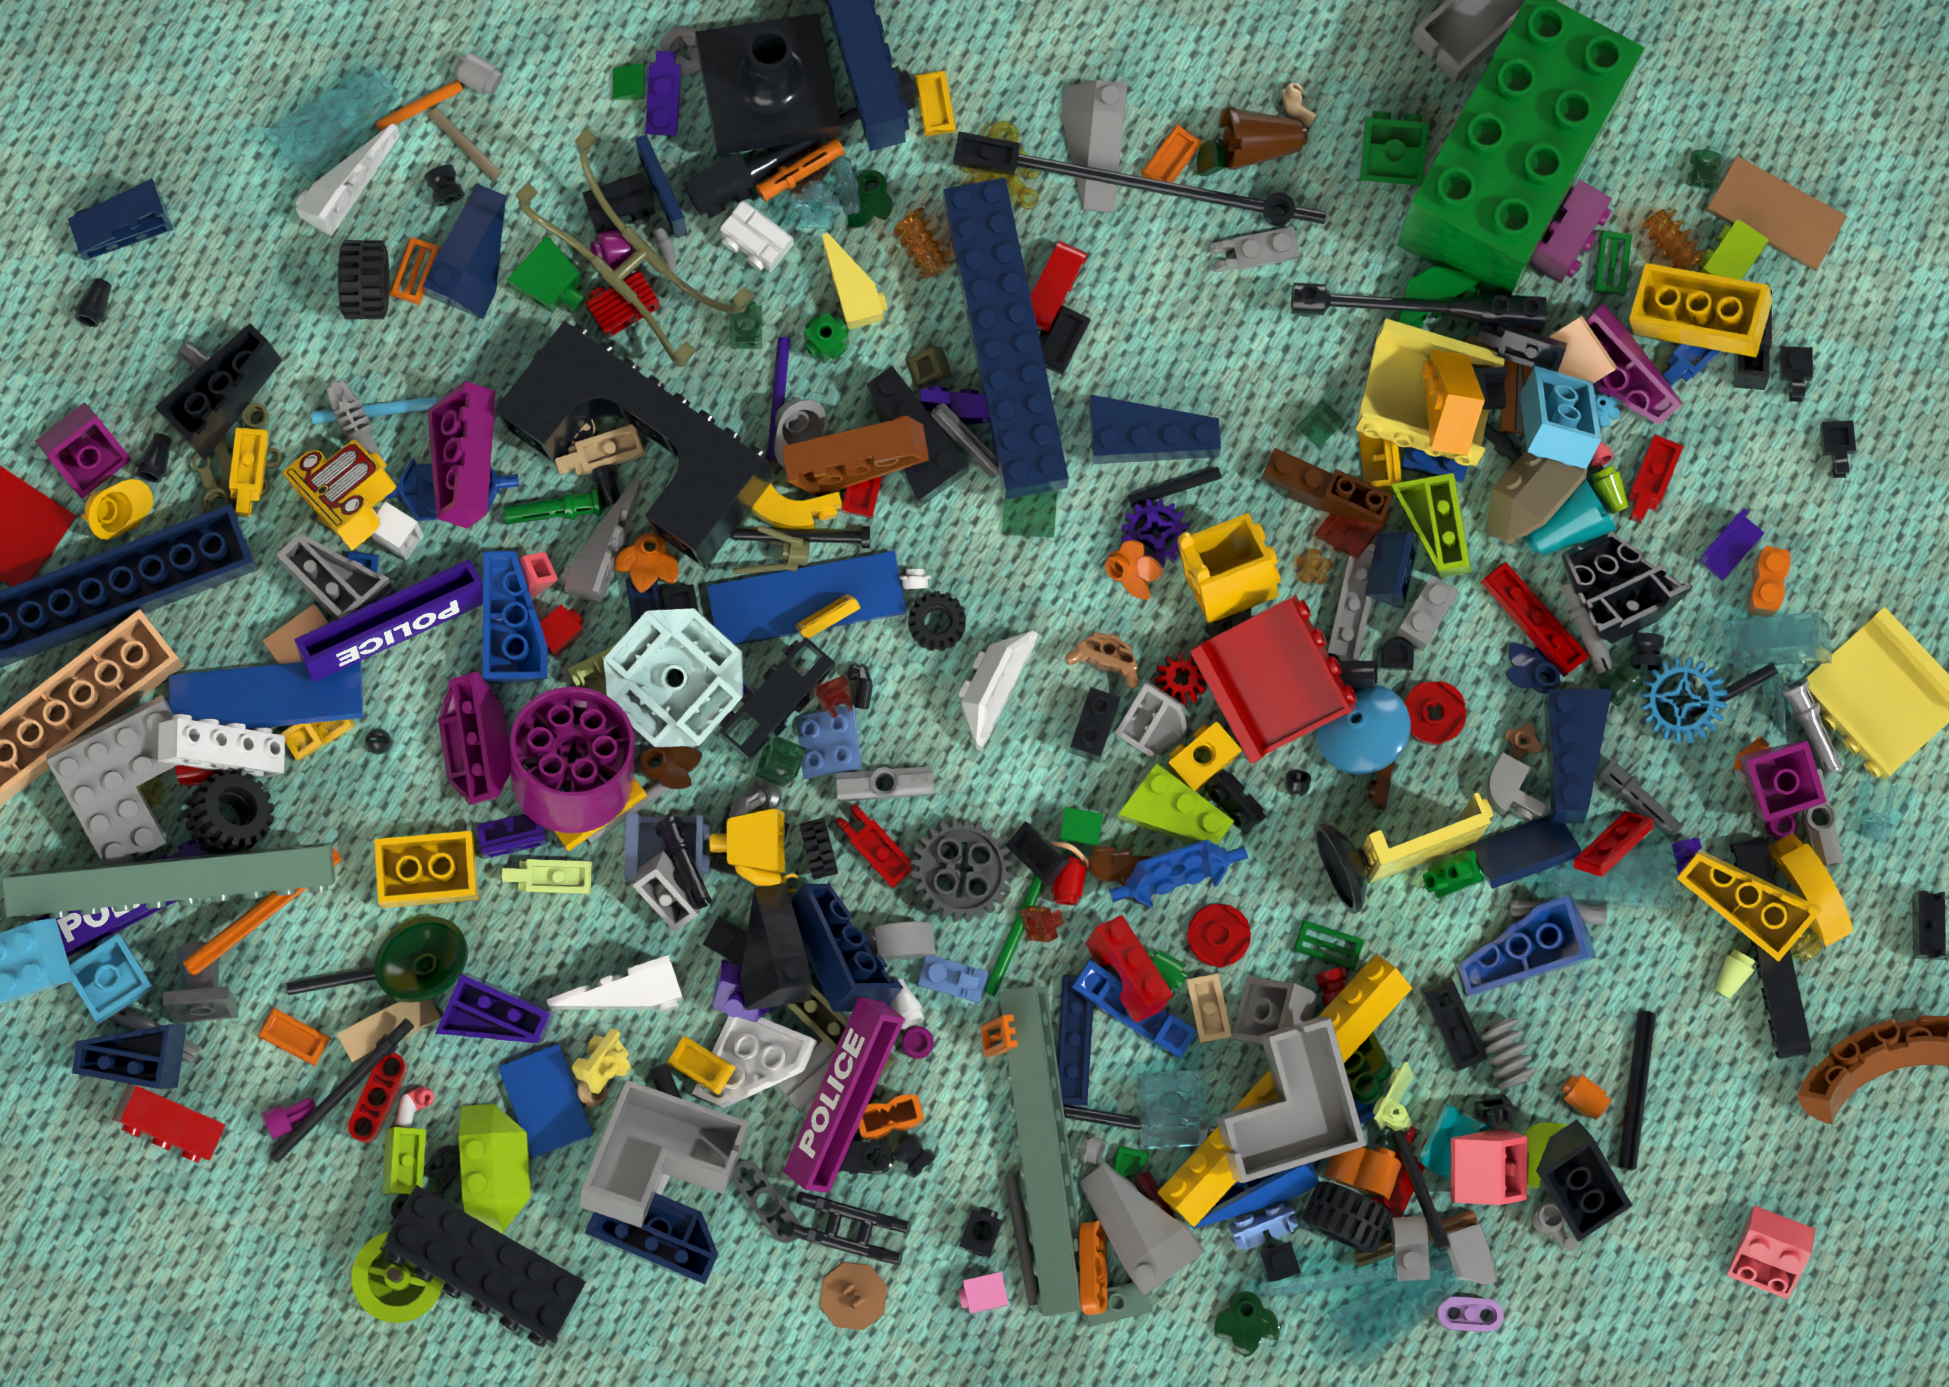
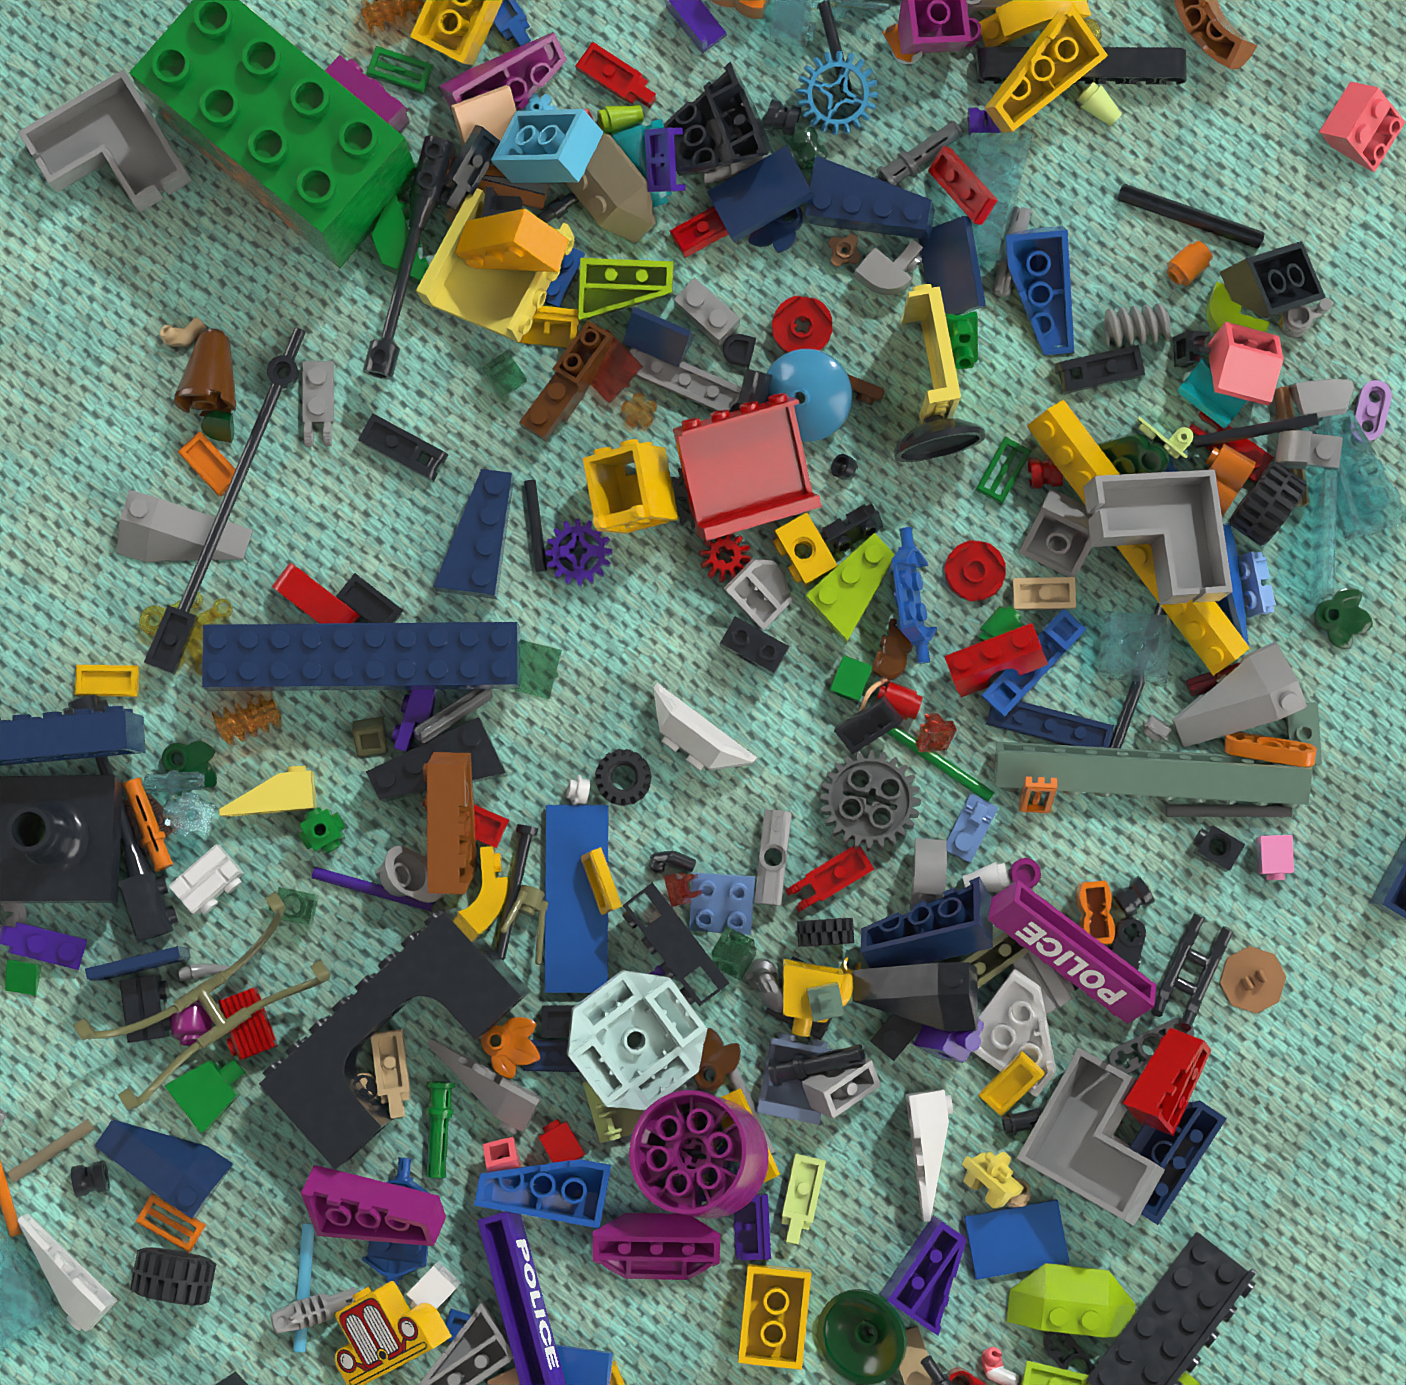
camera: 75 degrees left, 5 degrees up
(378, 747) = (642, 1343): black hinge -> none
(606, 484) = (425, 1072): black pin -> none
(731, 1215) = (1168, 1081): none -> red wedge
(747, 856) = (825, 1001): none -> sand green tile
(1107, 654) = (687, 621): medium nougat piece -> none
(1129, 1160) = (1172, 696): green tile -> none
(1133, 568) = (609, 580): orange plate -> none
(1227, 339) = (401, 446): none -> black plate
(1278, 1262) = (1295, 576): black brick -> none
(1394, 149) = (246, 249): green plate -> none
(1560, 641) = (760, 194): none -> dark blue tile
(1570, 533) = (661, 160): none -> dark purple hinge

